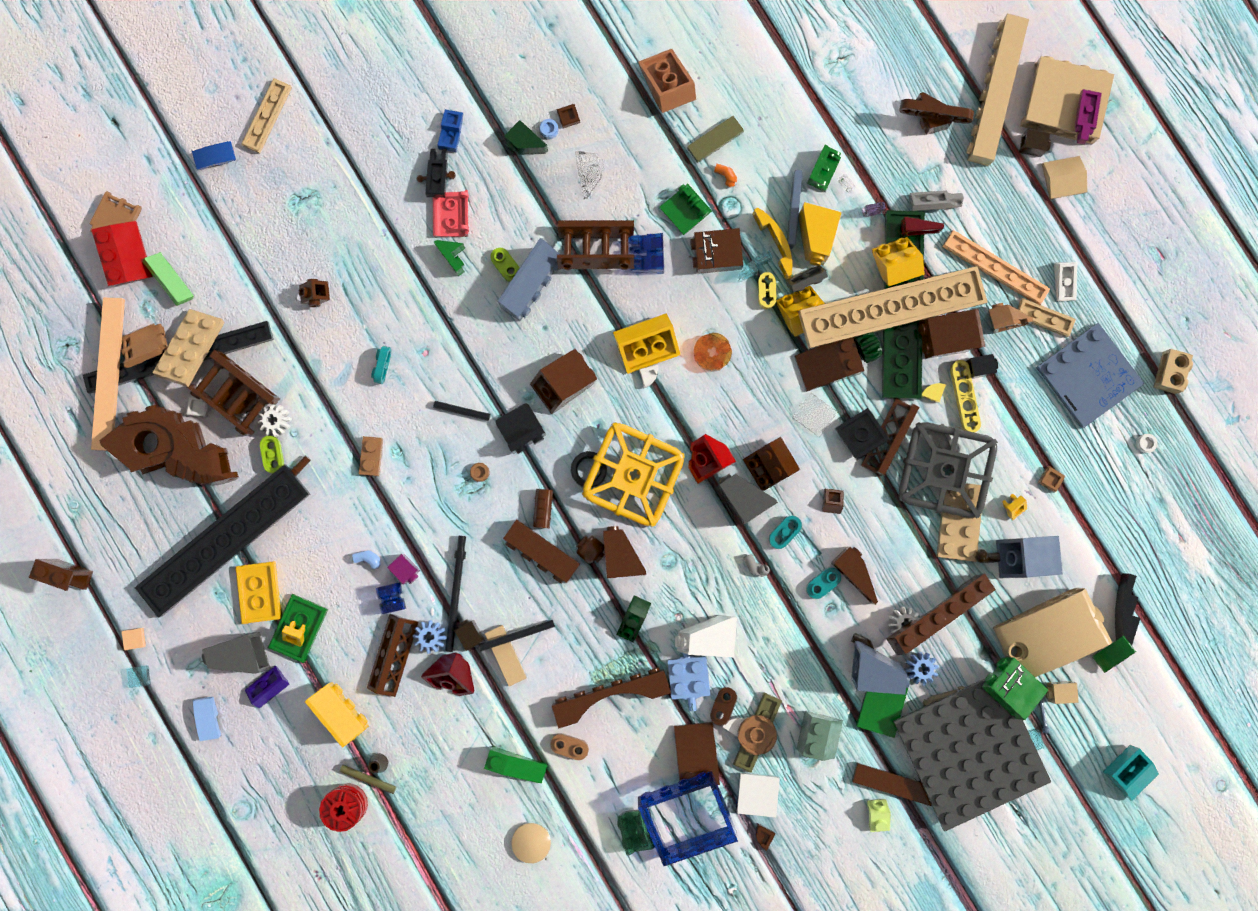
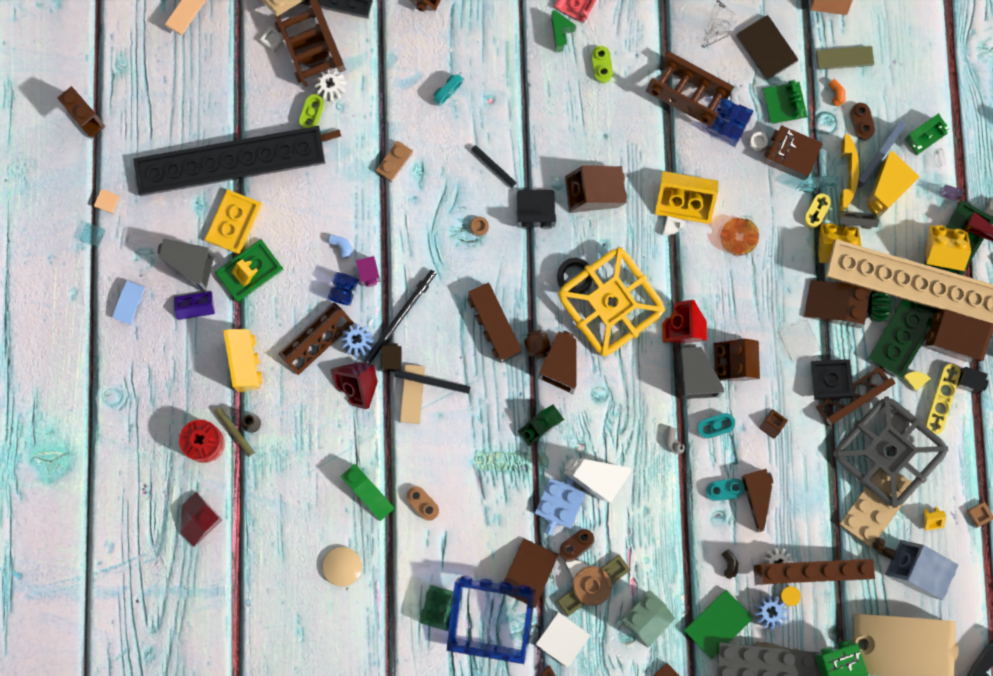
camera: 30 degrees right, 5 degrees down
(179, 447) = (237, 65): reddish brown animal -> none
(380, 874) = (197, 519): none -> dark red slope
(529, 280) = (615, 88): sand blue slope -> none
(542, 508) = (516, 286): reddish brown axle -> none
(642, 167) = (767, 47): none -> dark brown tile
(649, 685) = (443, 472): reddish brown arch -> none
(681, 257) = (758, 141): none -> white tile
(759, 189) = (862, 120): none -> reddish brown plate
(877, 672) = (729, 588): sand blue slope -> none
(931, 645) = (790, 596): none -> yellow tile

